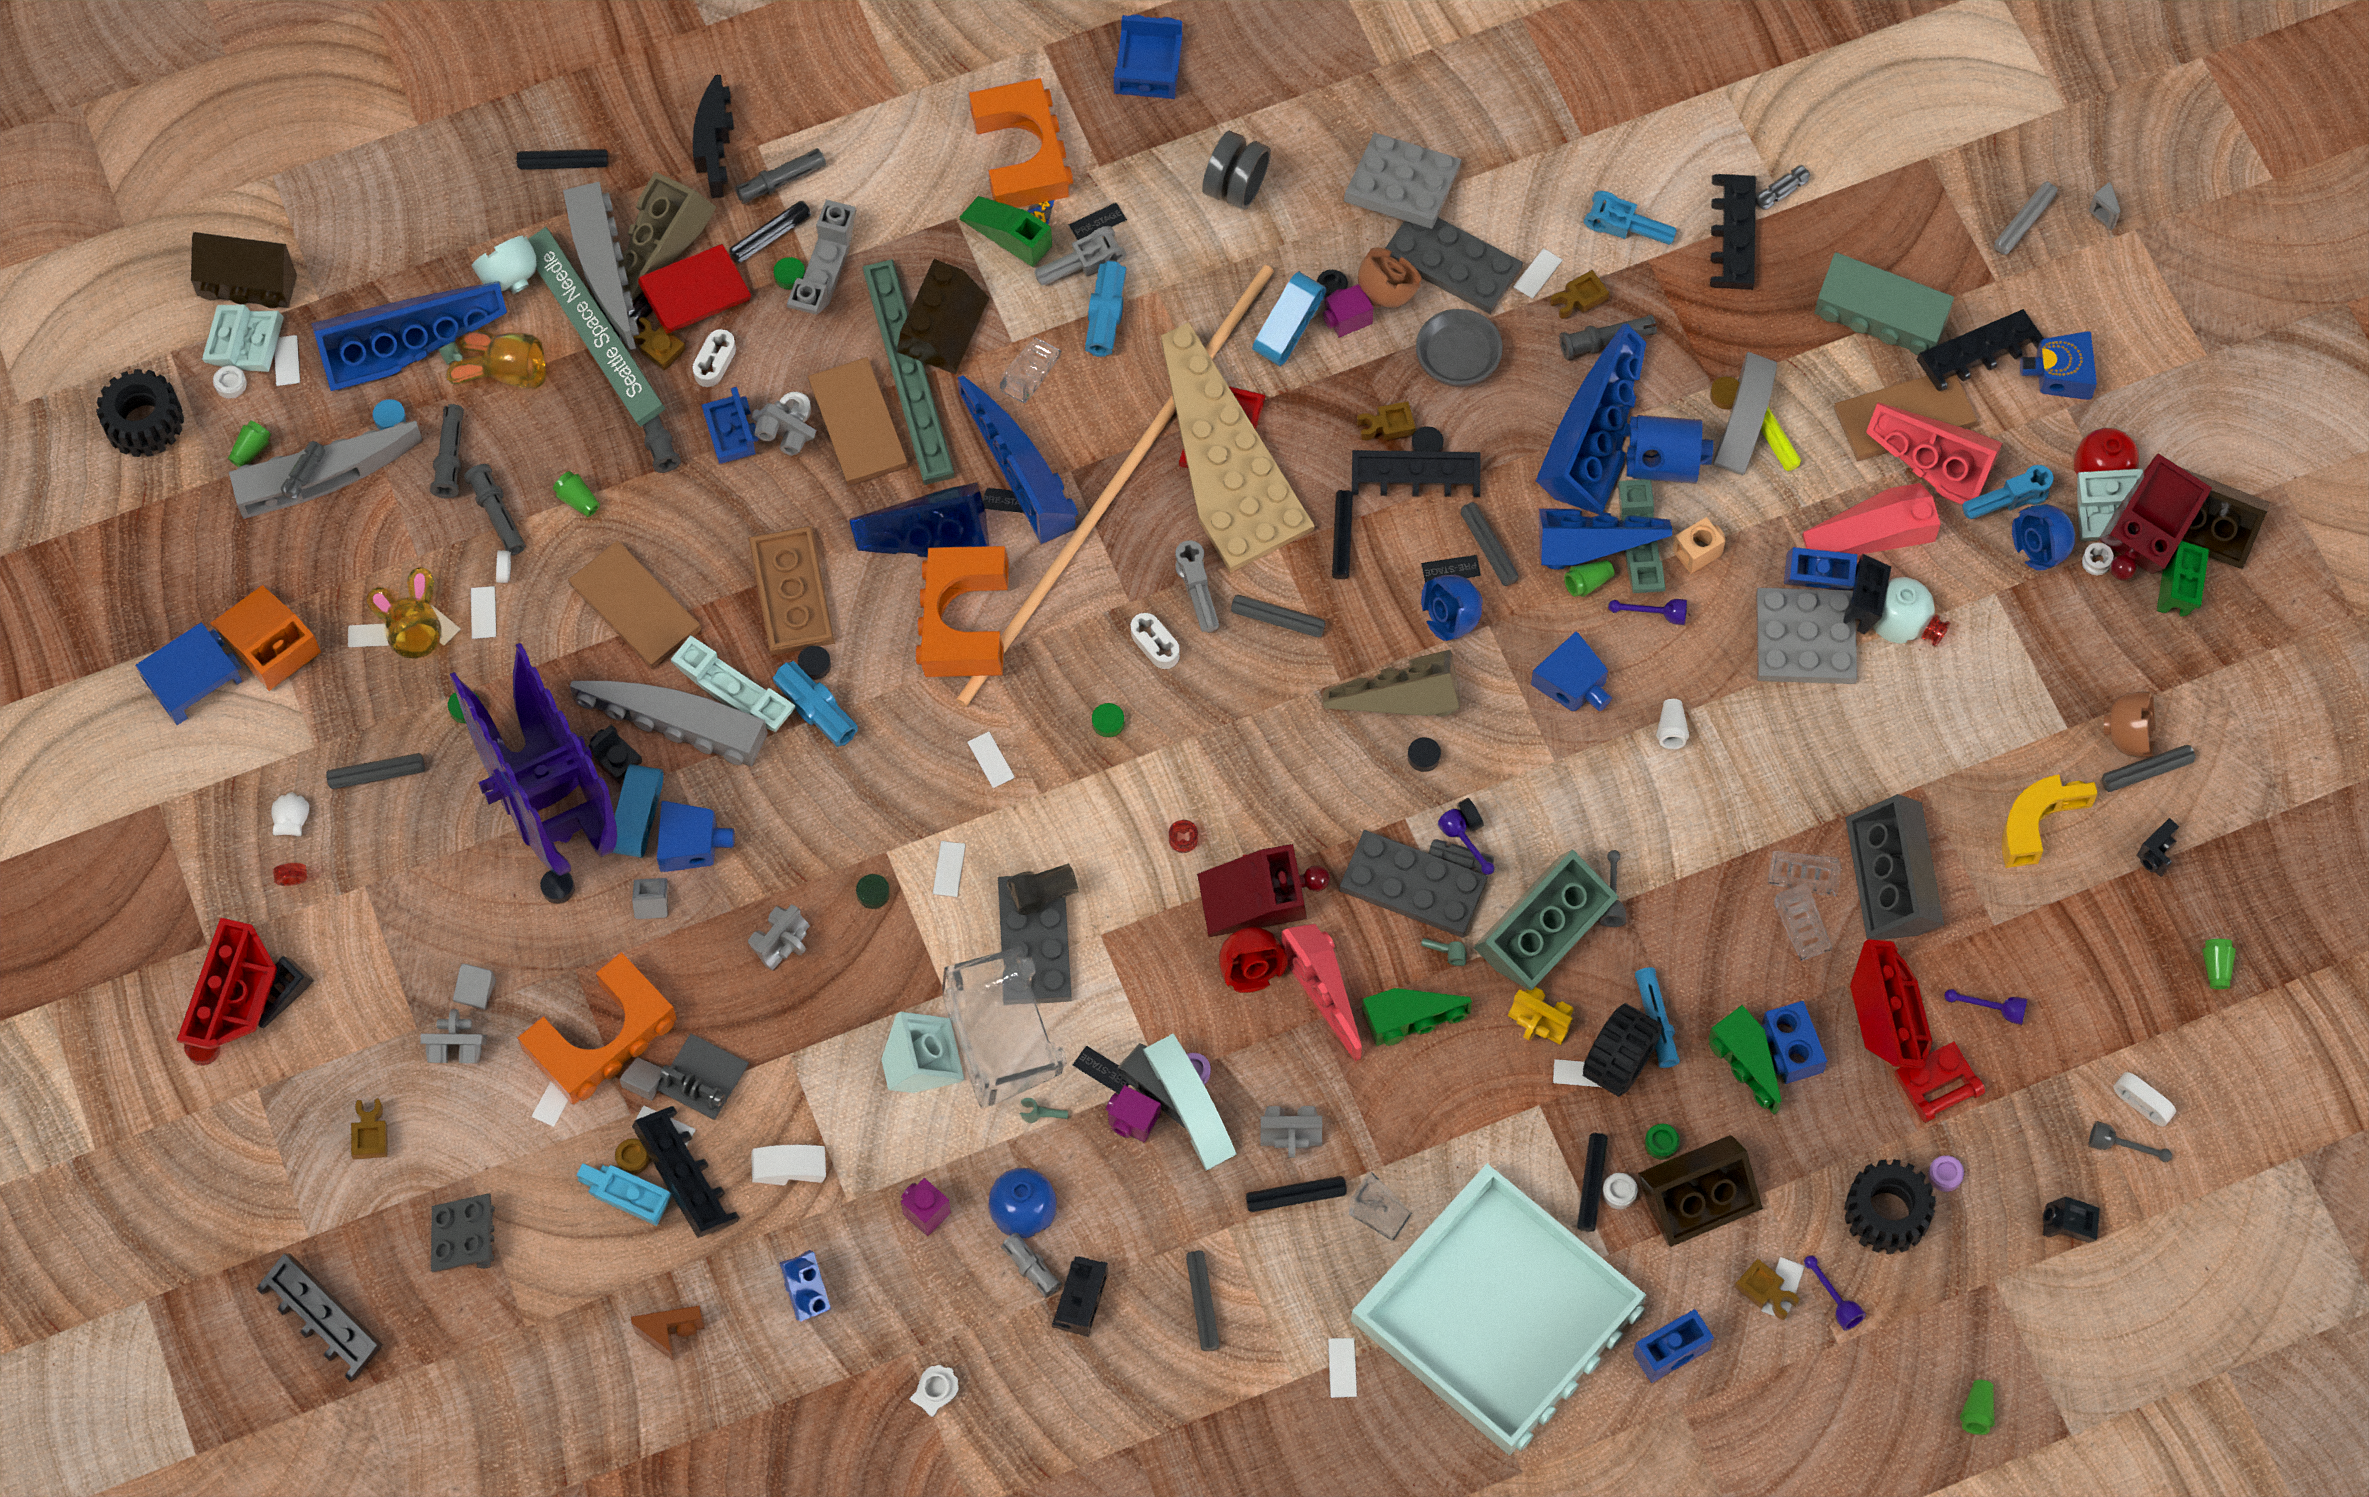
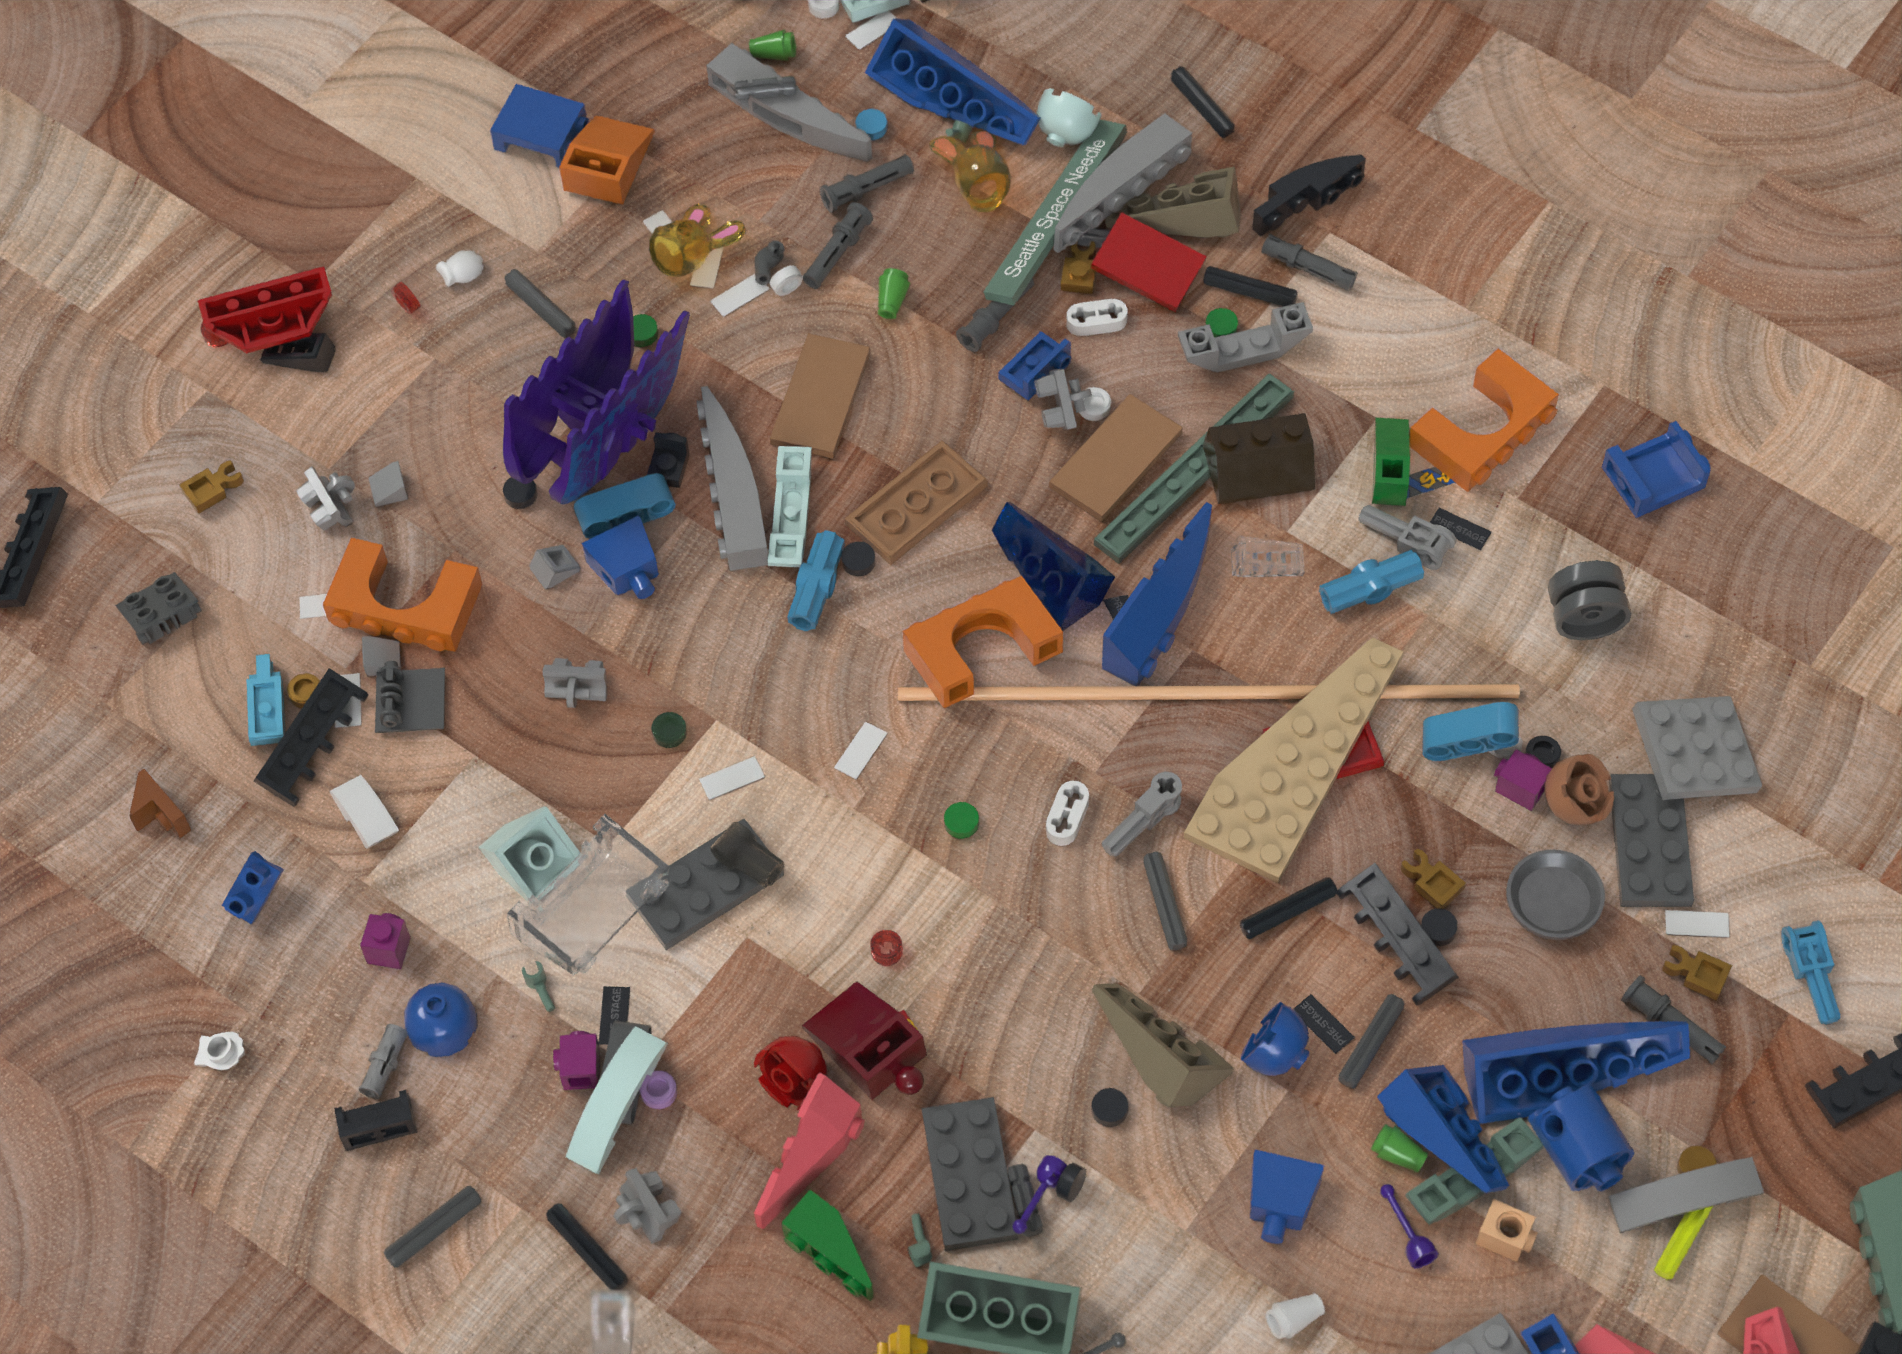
camera: 60 degrees right, 5 degrees down
(468, 573) = (766, 260): none -> dark grey arm

